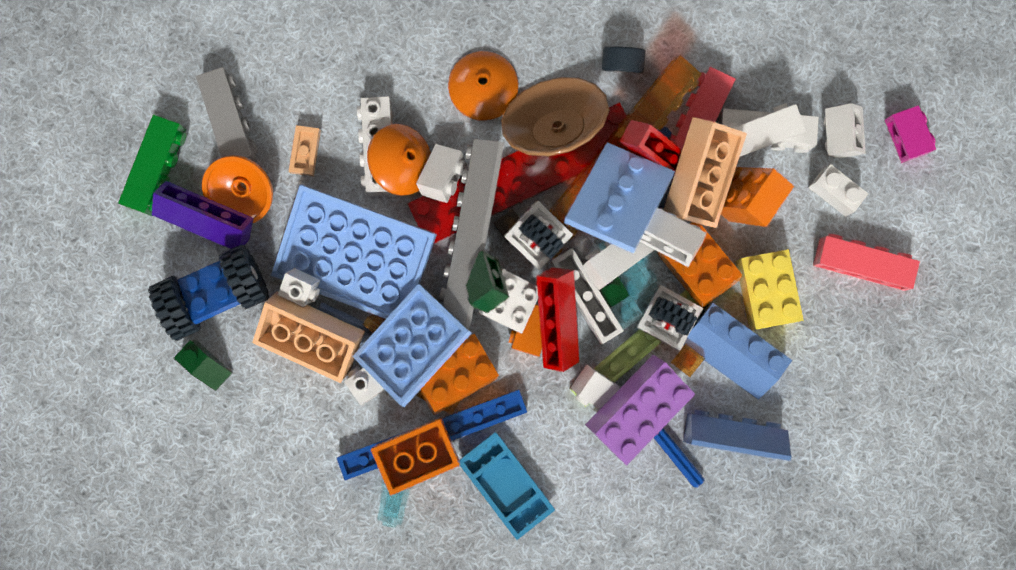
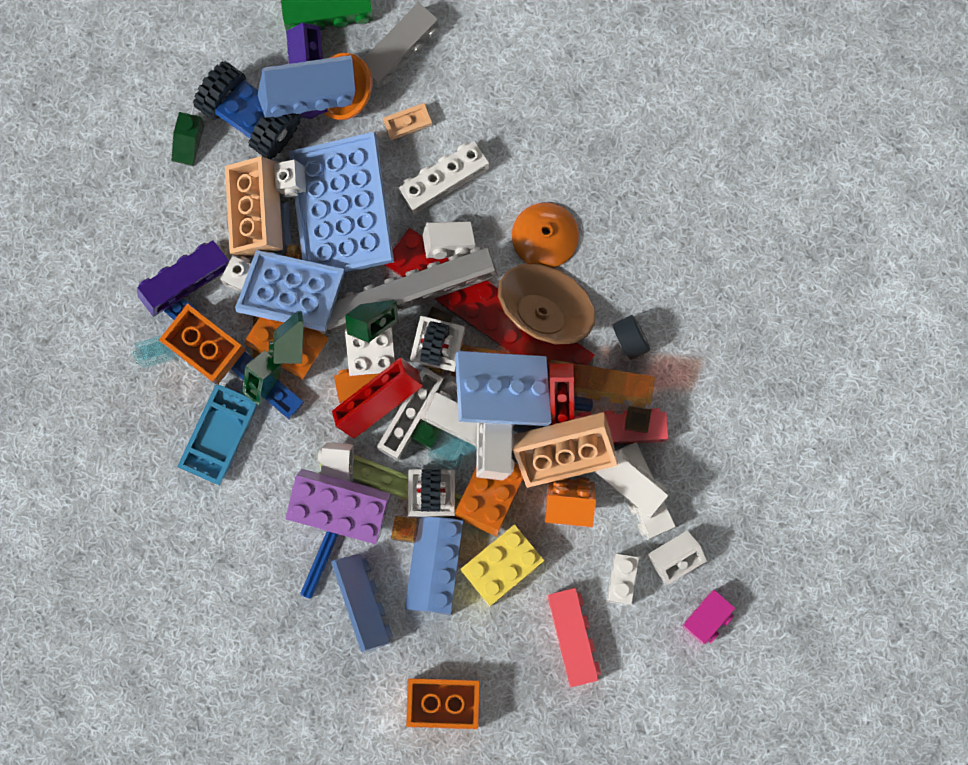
camera: 65 degrees right, 5 degrees down
(221, 221) = (306, 86): none -> medium blue slope
(338, 440) = (182, 278): none -> dark purple brick
(389, 158) = (435, 188): orange dish -> none
(462, 372) = (288, 341): none -> dark green slope
(478, 416) = (260, 377): none -> dark green slope
(627, 312) = (414, 454): clear light blue brick -> none
(706, 94) = (637, 419): none -> dark brown plate
(867, 411) = (442, 703): none -> orange brick

